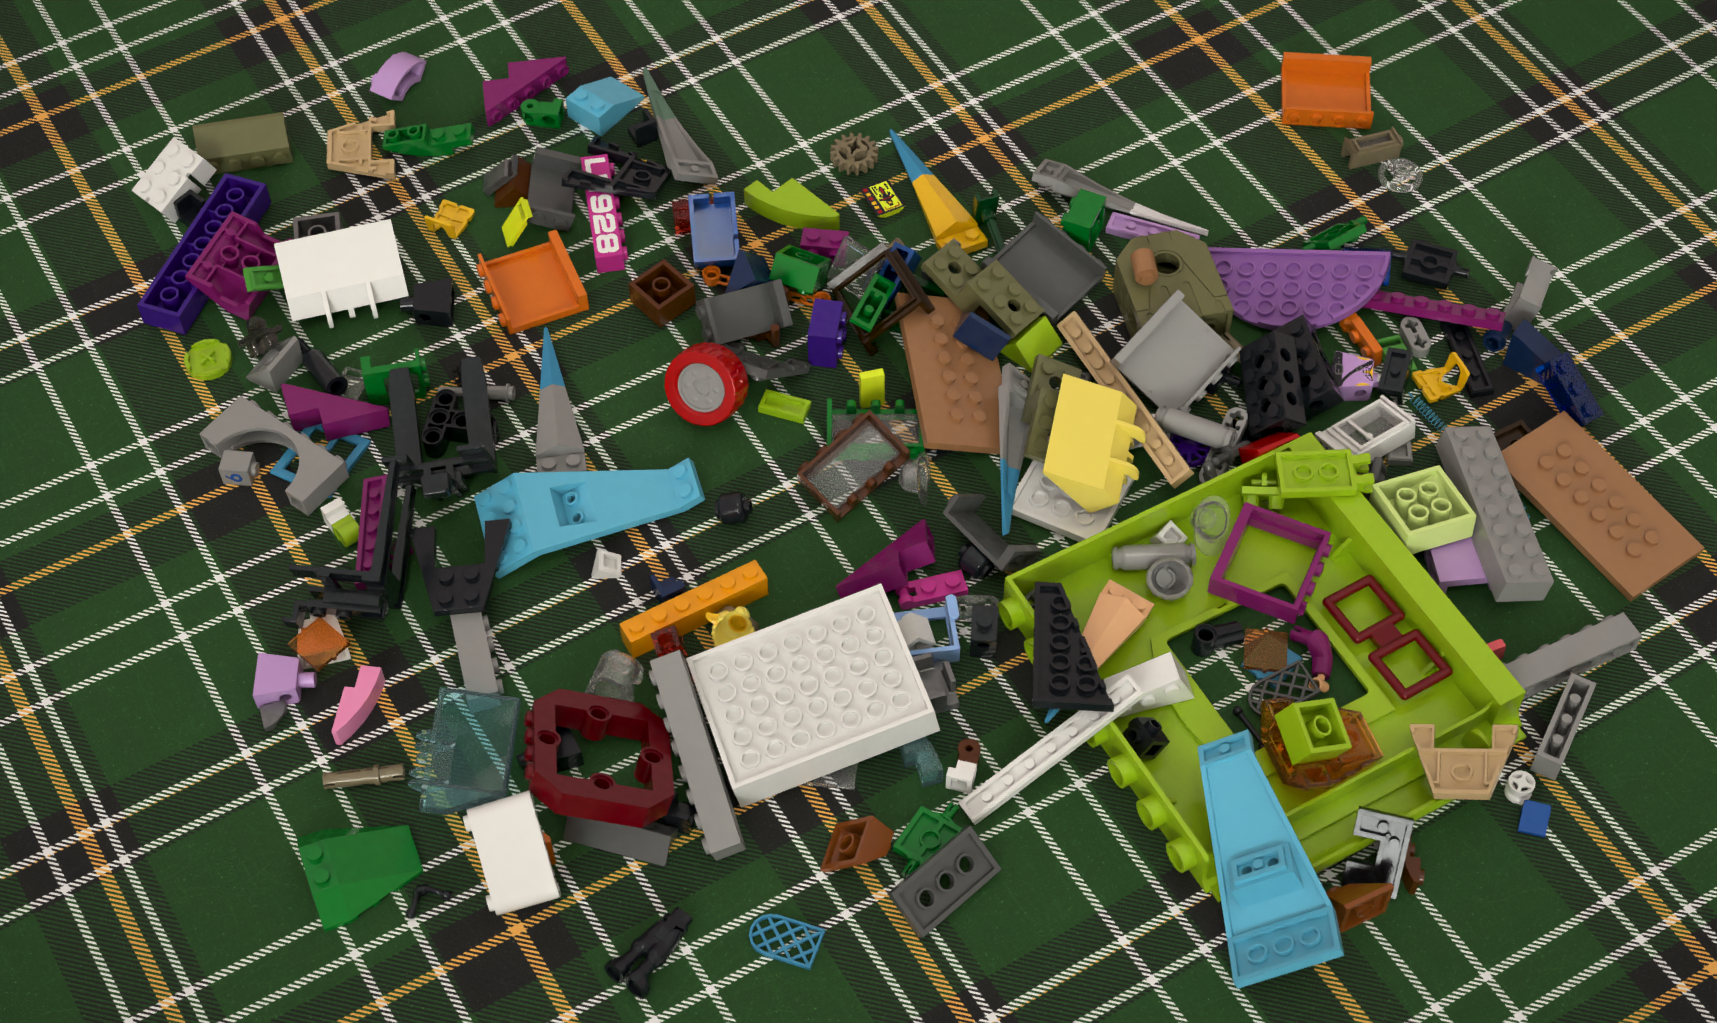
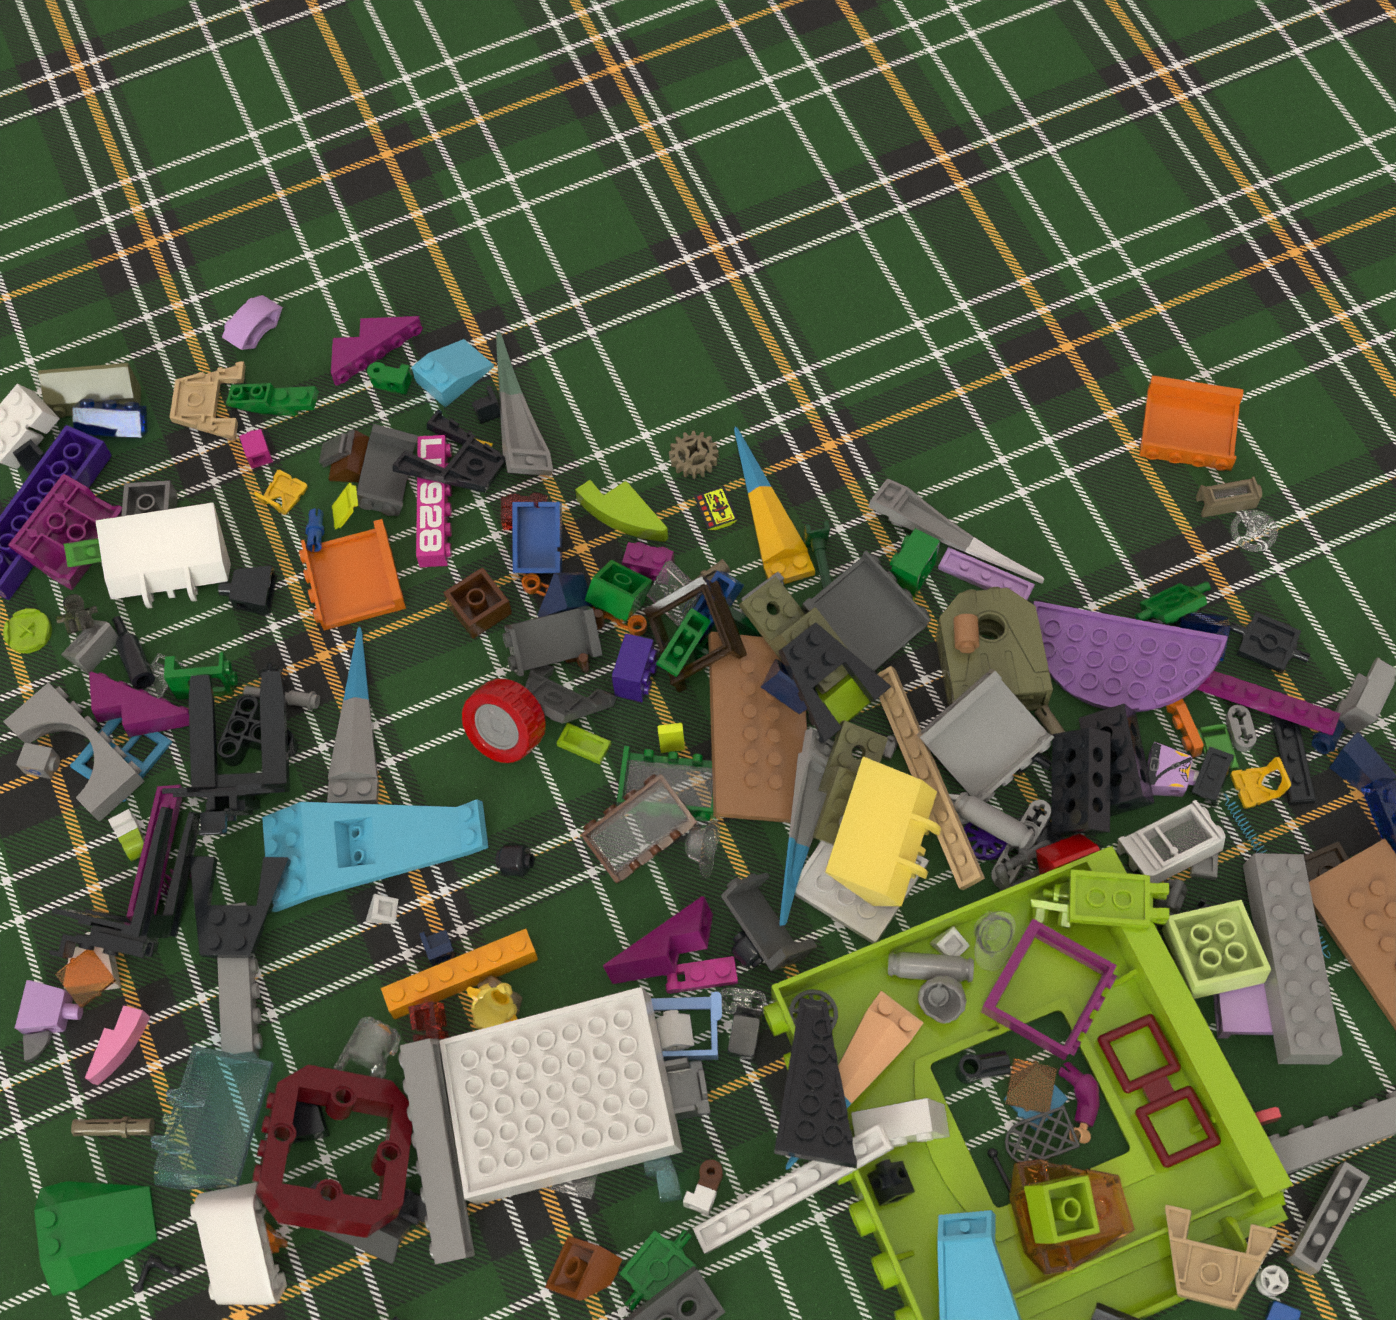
camera: 10 degrees right, 10 degrees up
(268, 166) = (110, 418): none -> brick
(418, 183) = (256, 448): none -> dark pink brick
(489, 247) = (315, 530): none -> blue pin
(1001, 301) = (815, 656): none -> black wing

